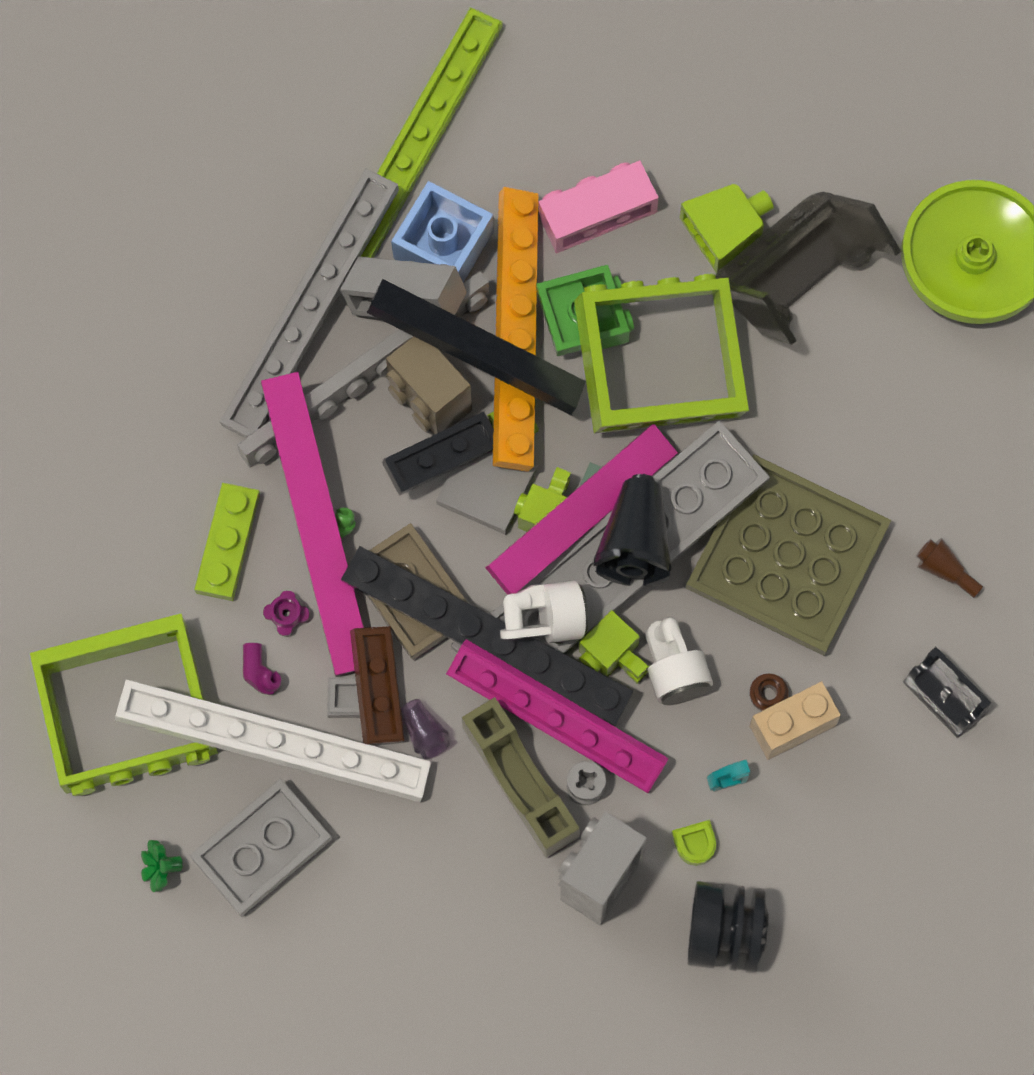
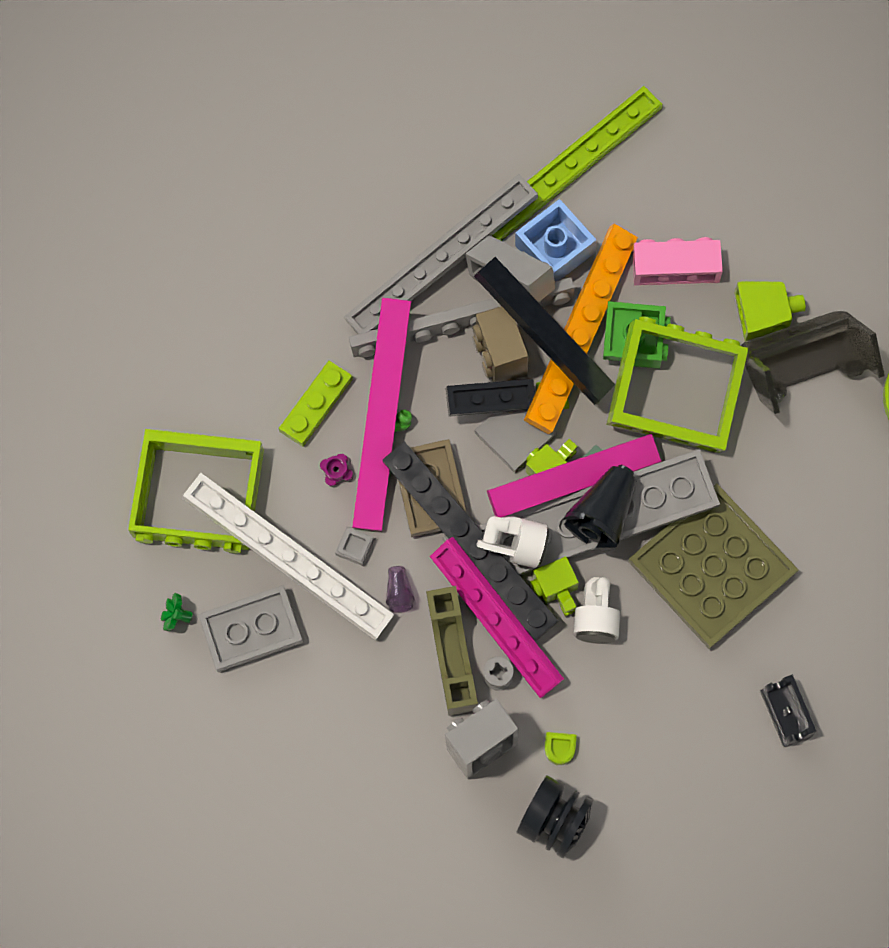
camera: 25 degrees right, 0 degrees up
(256, 673) = (297, 503): magenta arm -> none
(377, 685) = (378, 545): reddish brown tile -> none
(729, 776) = (604, 709): teal tile -> none
(767, 681) = (661, 651): reddish brown plate -> none
(794, 720) = (667, 687): tan brick -> none
(941, 562) = (823, 614): reddish brown cone -> none

